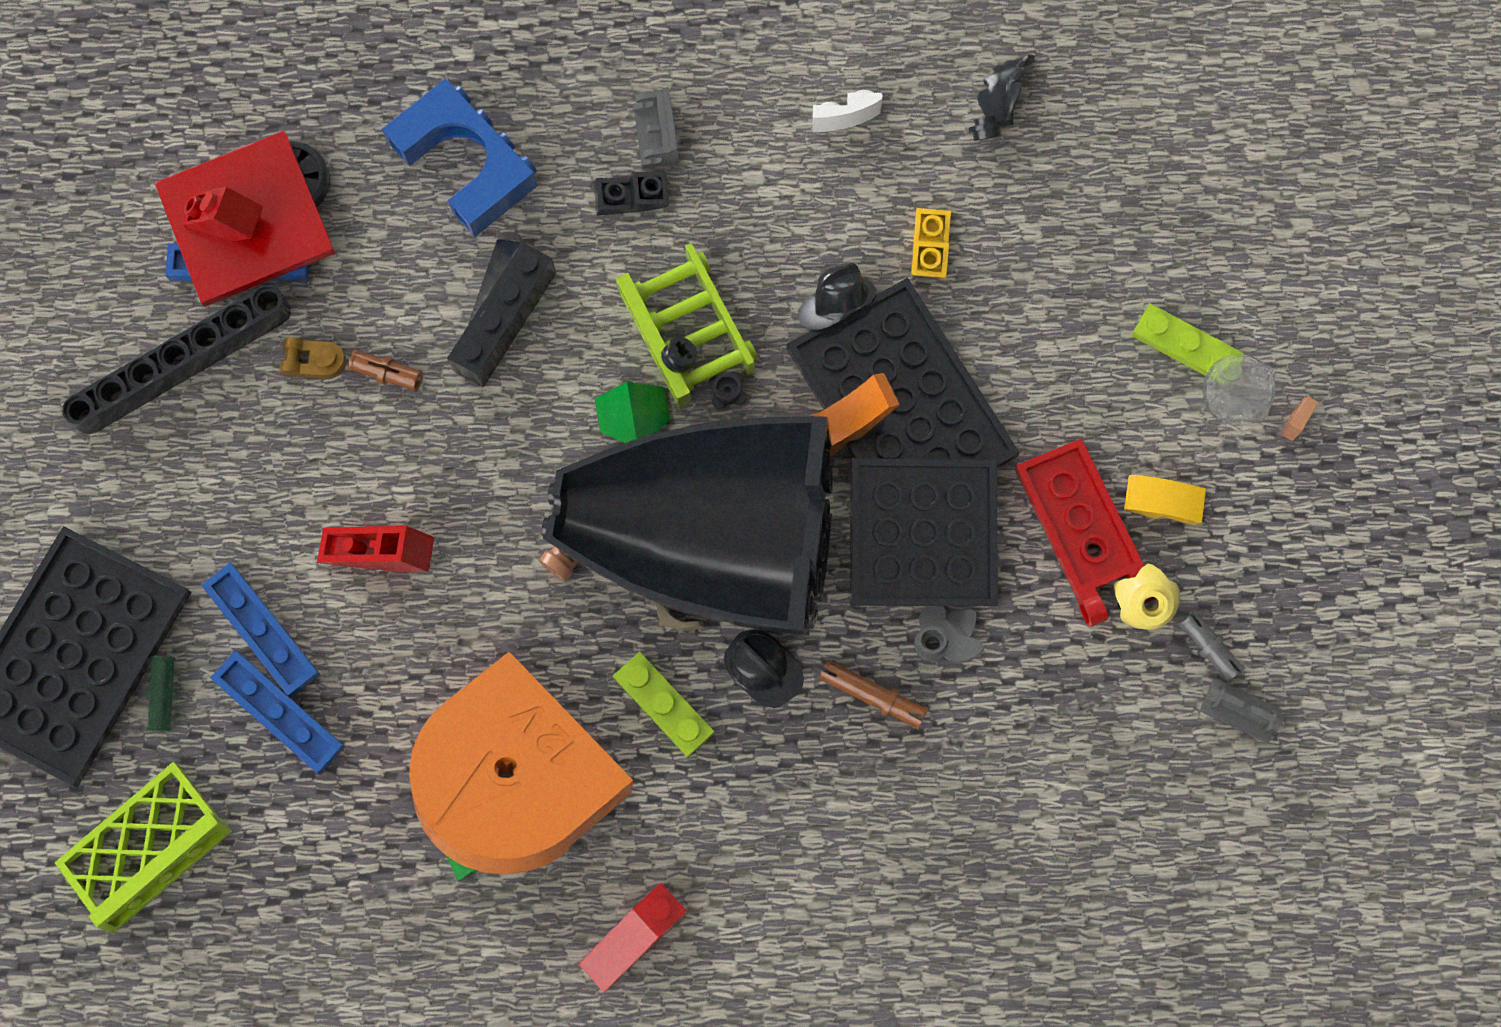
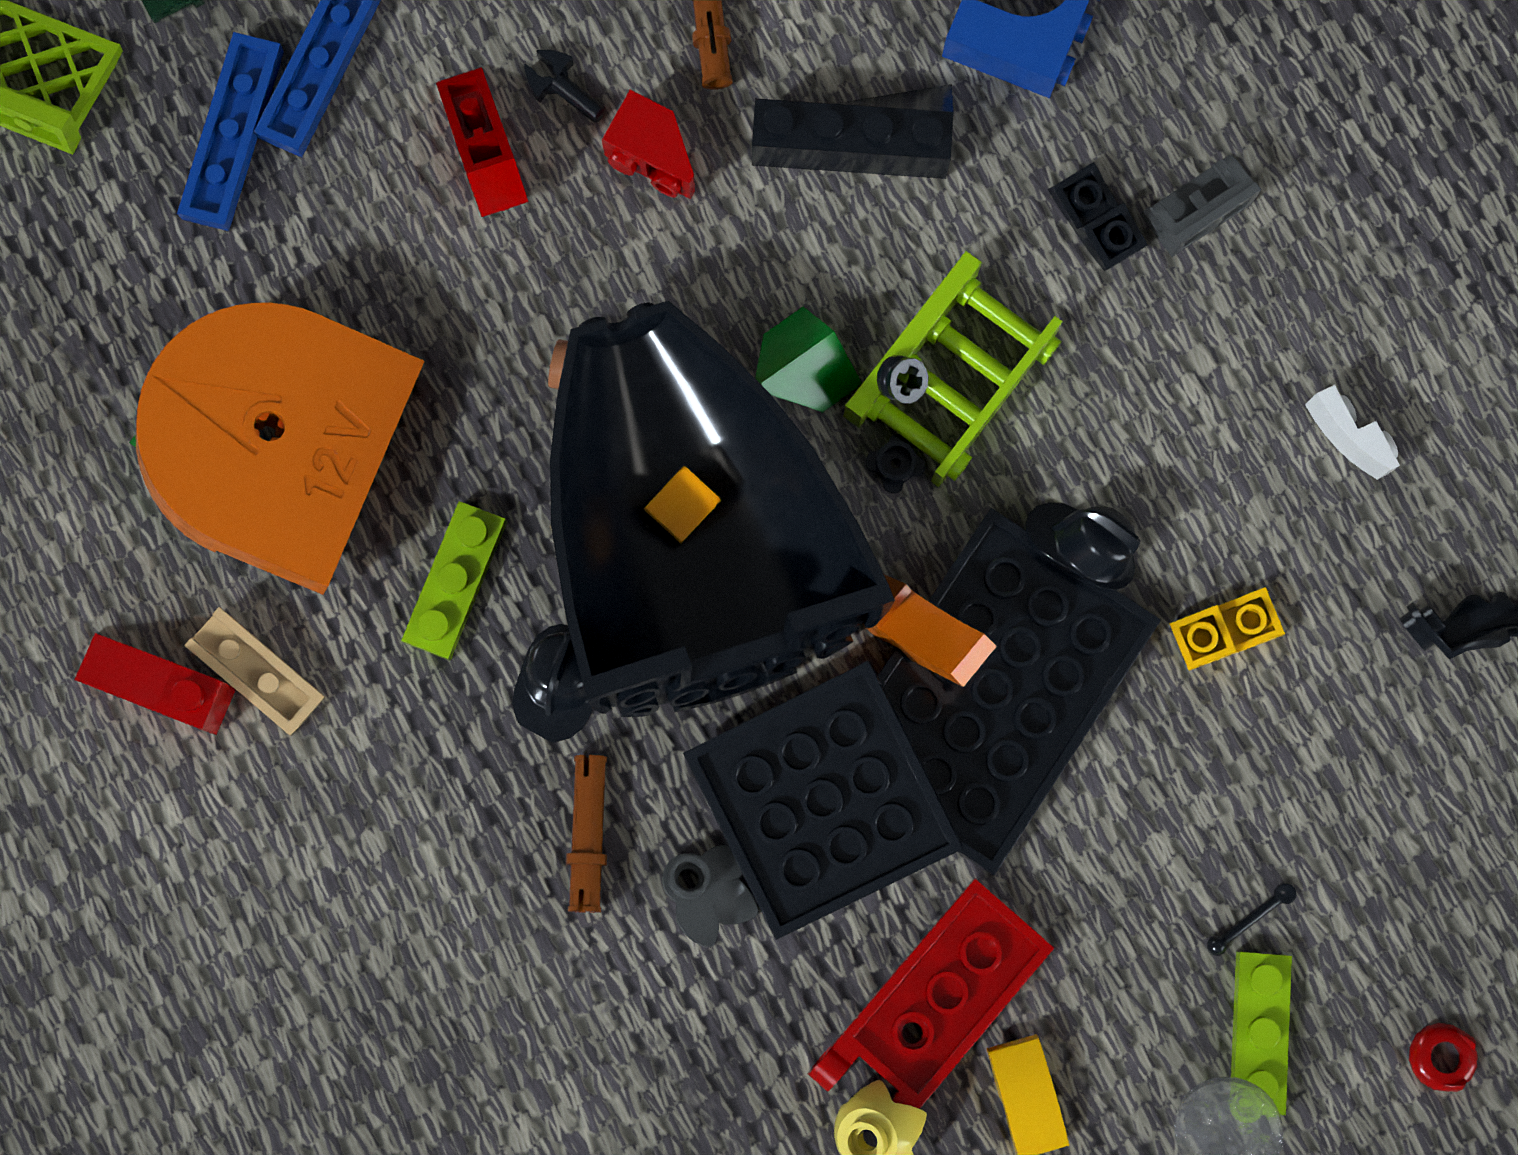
camera: 60 degrees right, 5 degrees up
(364, 481) = (562, 85): none -> black bar
(439, 439) = (649, 142): none -> red slope
(659, 863) = (255, 671): none -> tan hinge
(688, 530) = (682, 504): none -> light orange slope
(1109, 291) = (1282, 895): none -> black hinge
(1242, 259) = (1421, 1061): none -> red piece

